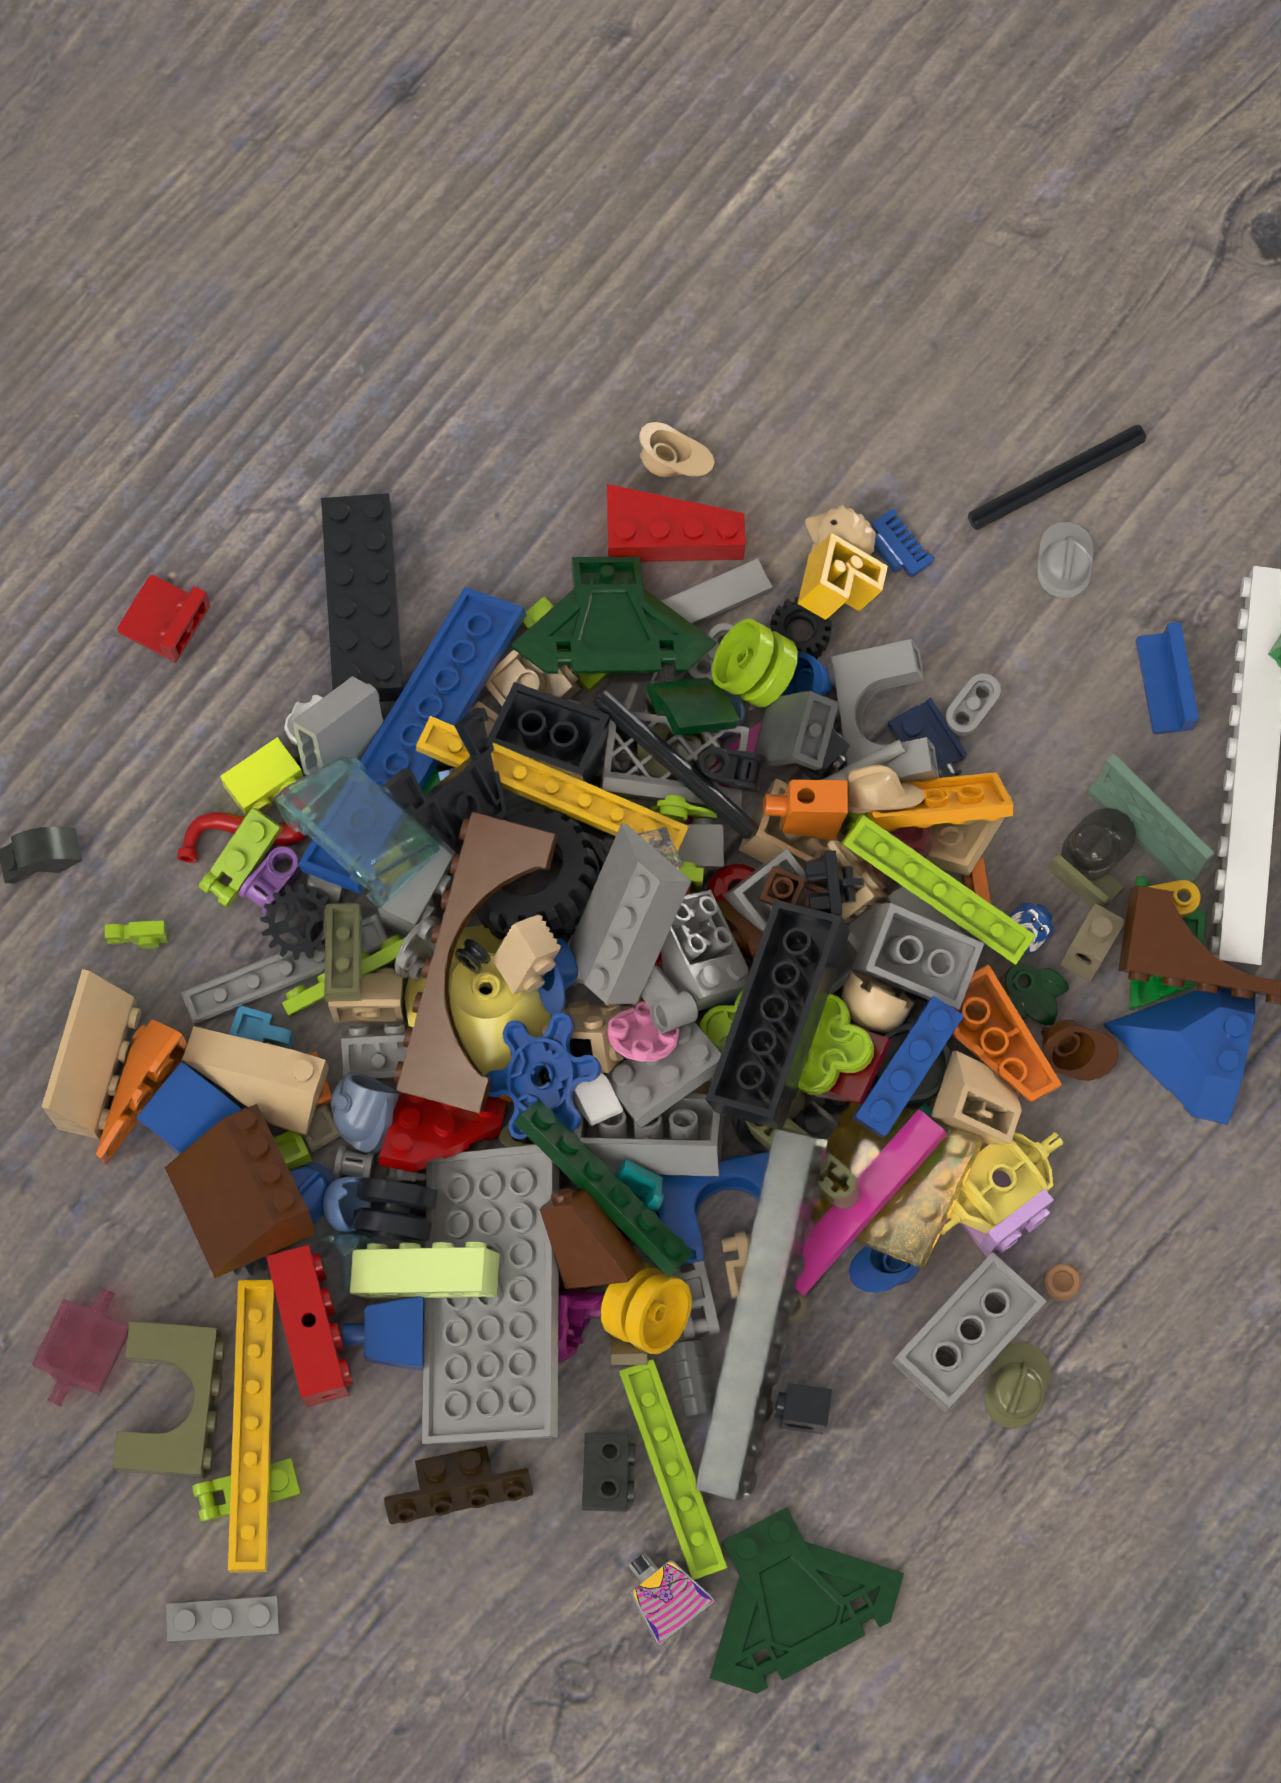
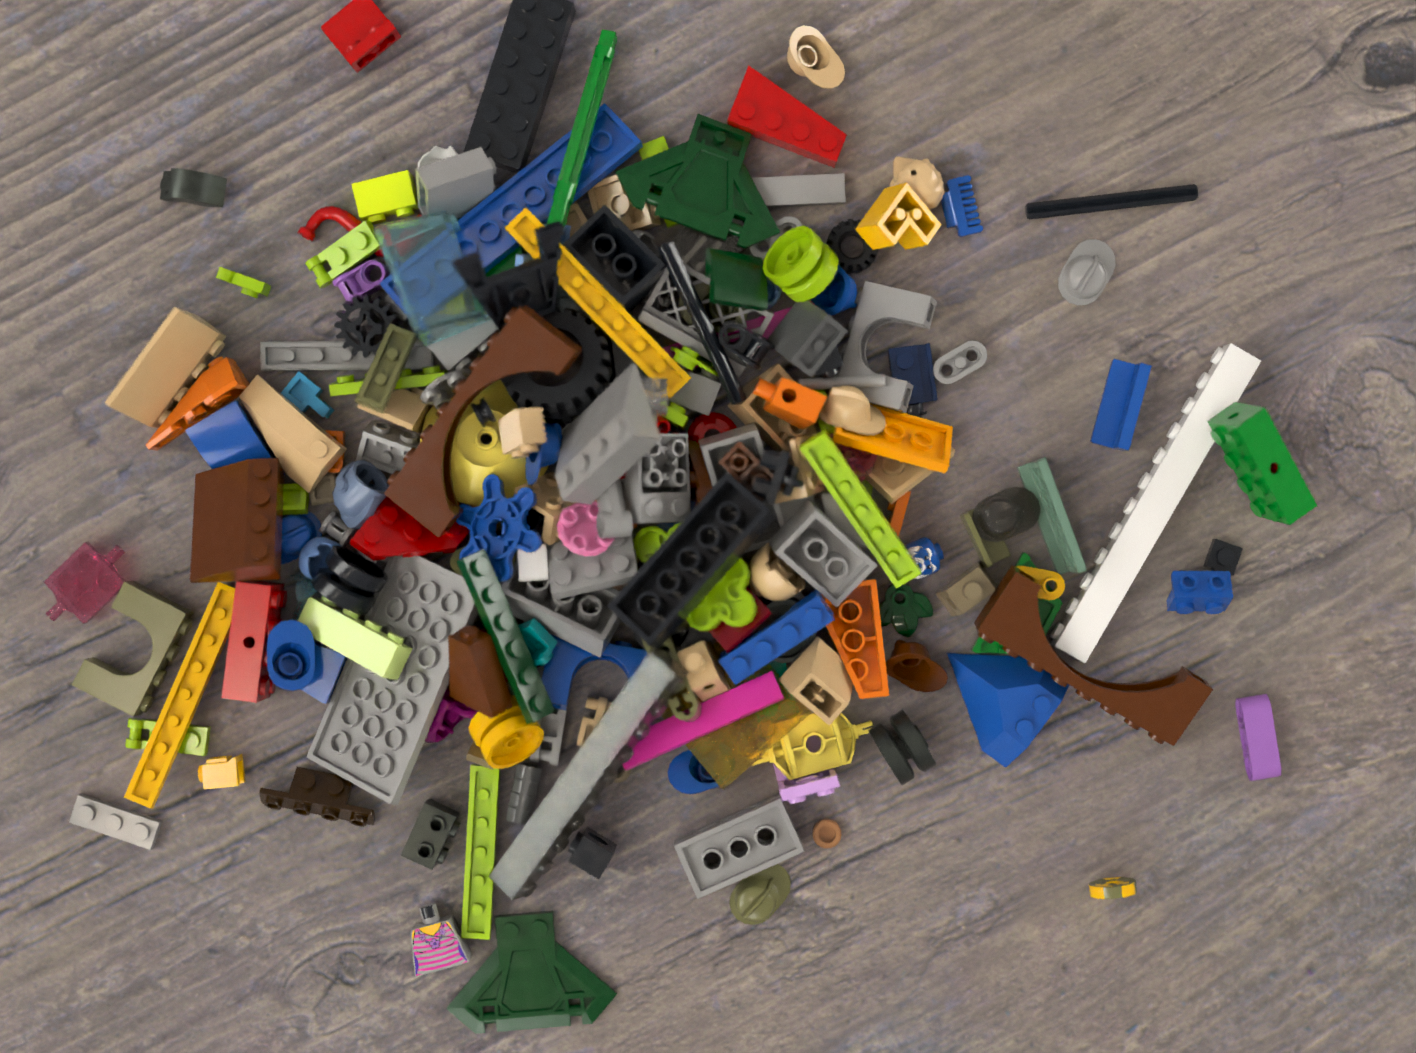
camera: 25 degrees right, 15 degrees up
(328, 1502) = (222, 772): none -> yellow window
(362, 1316) = (291, 655): none -> blue piece
(453, 613) = (583, 127): none -> green piece
(843, 1139) = (703, 670): none -> tan torso
(1103, 1140) = (902, 747): none -> pearl dark grey wheel

